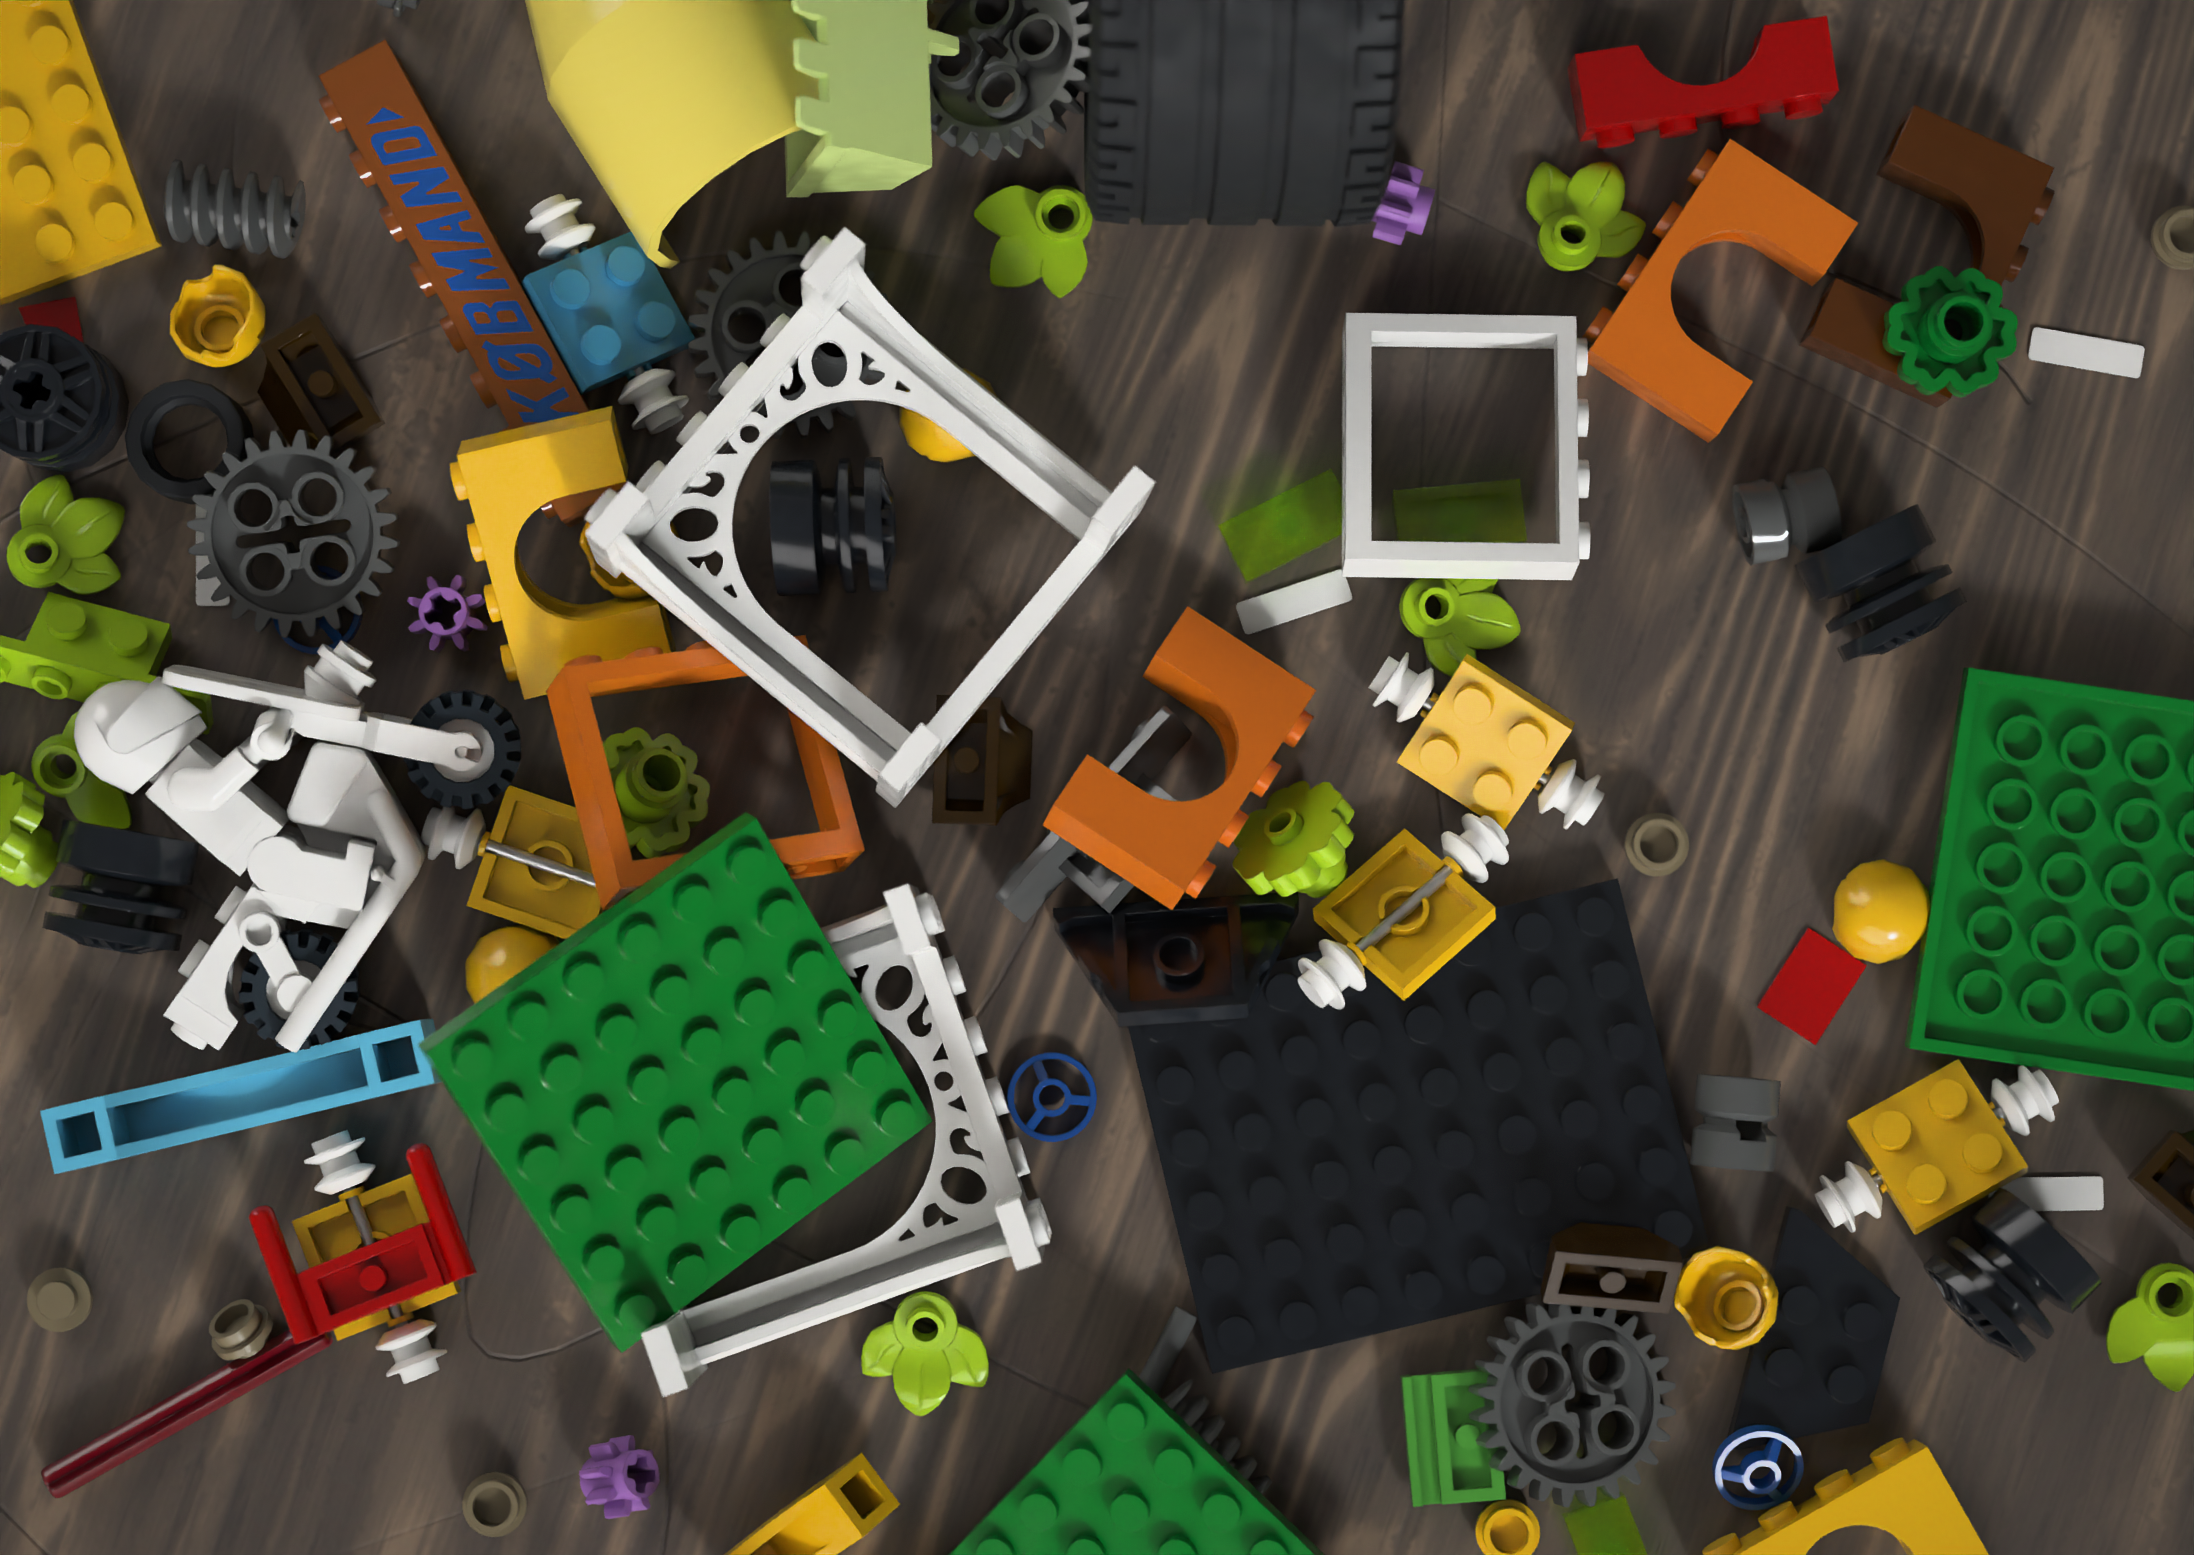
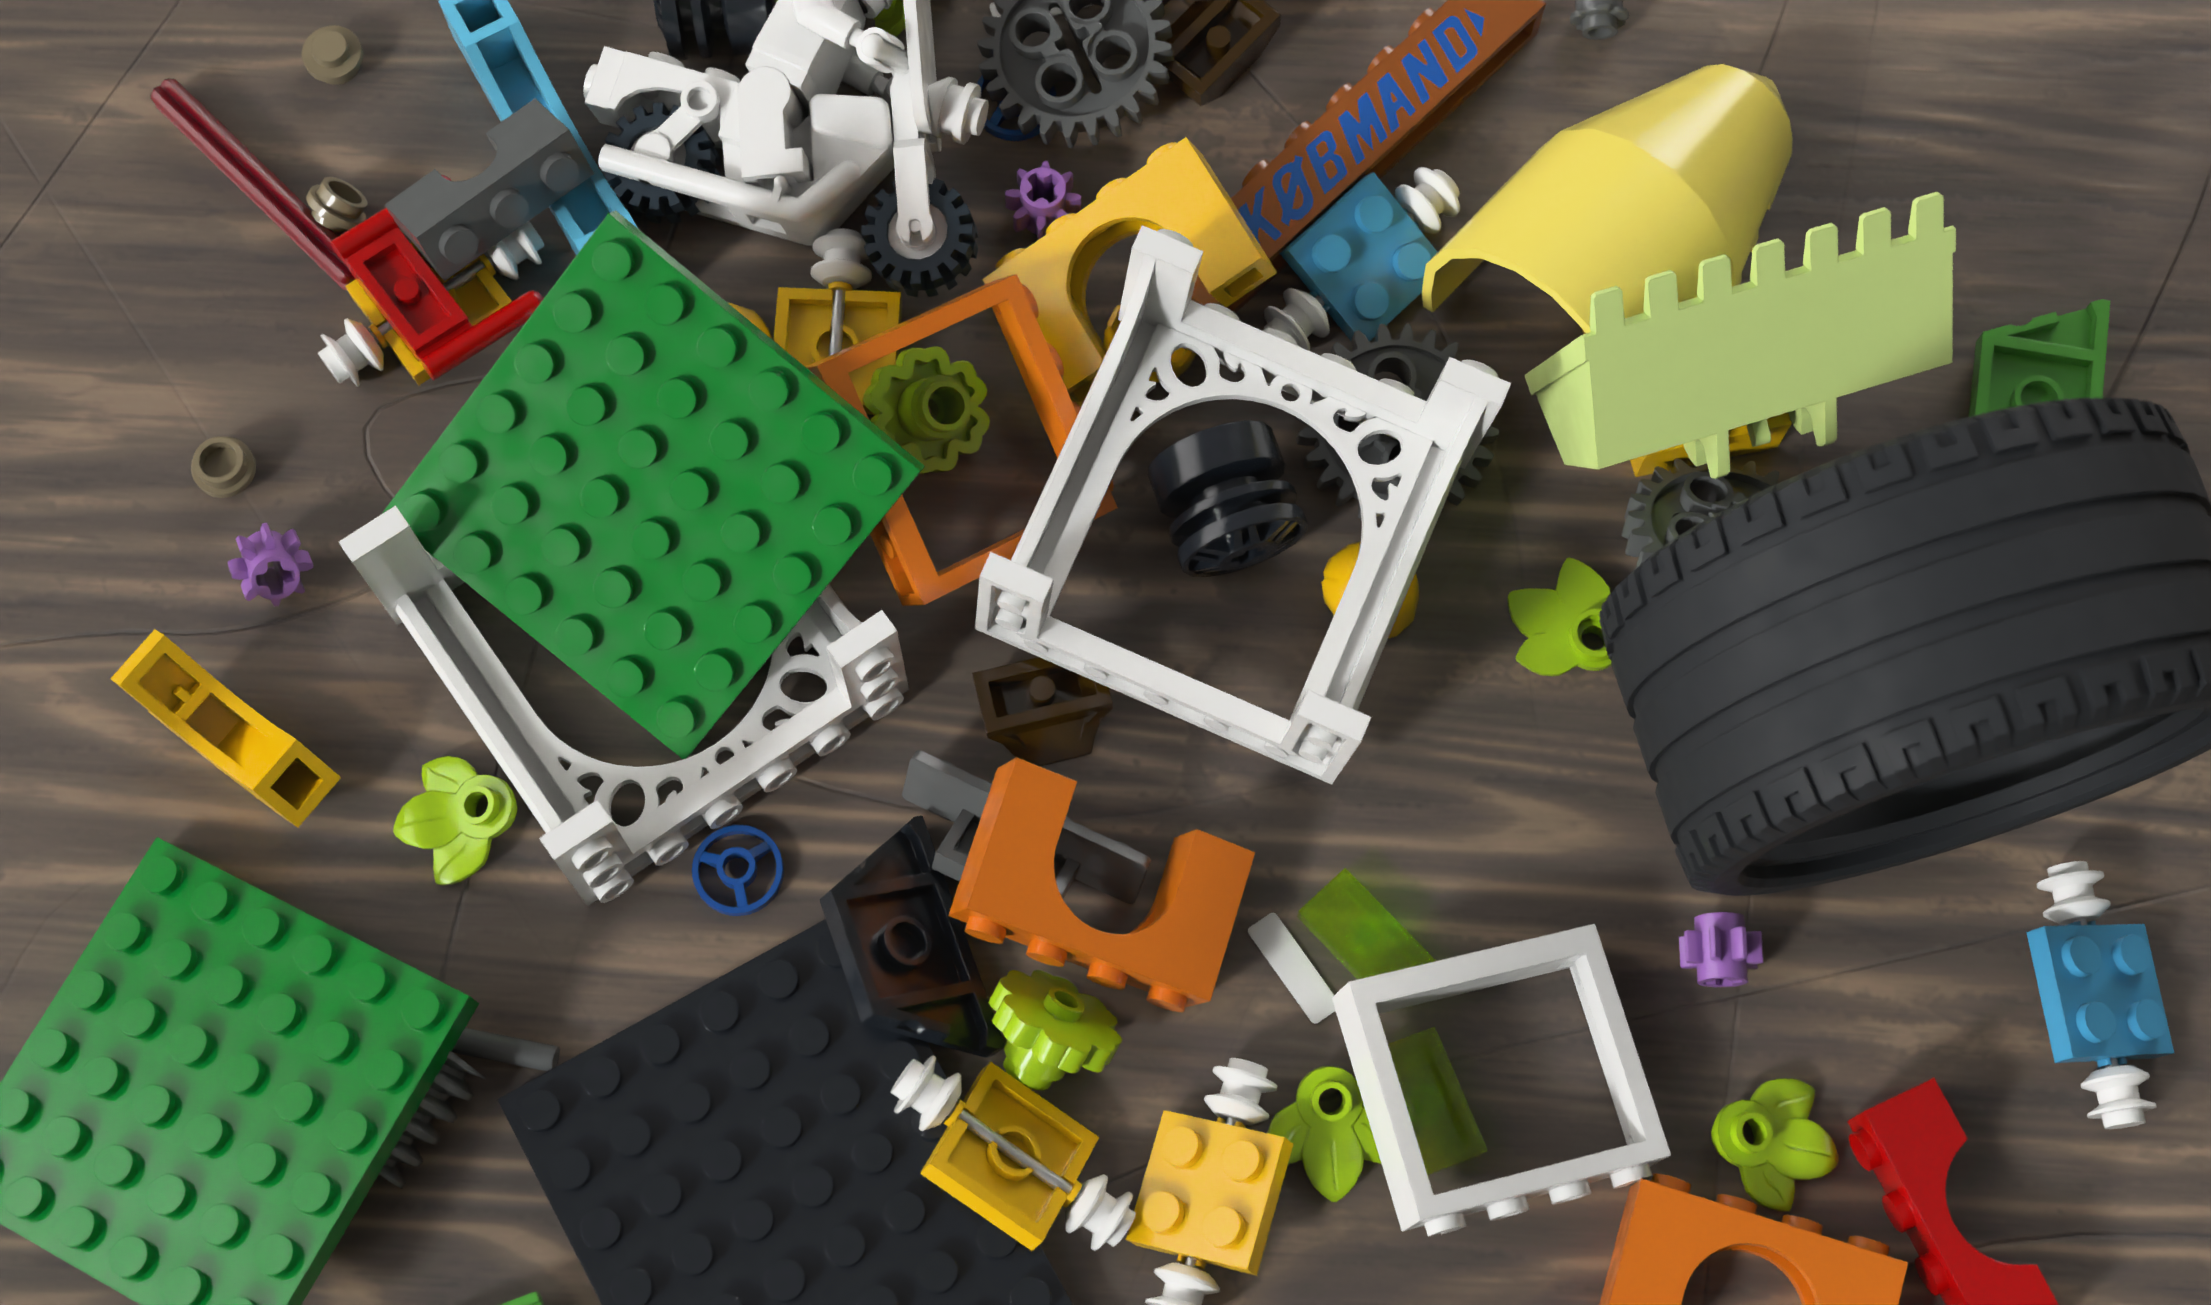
camera: 70 degrees right, 15 degrees down
(316, 1205) = (463, 219): none -> dark grey arch

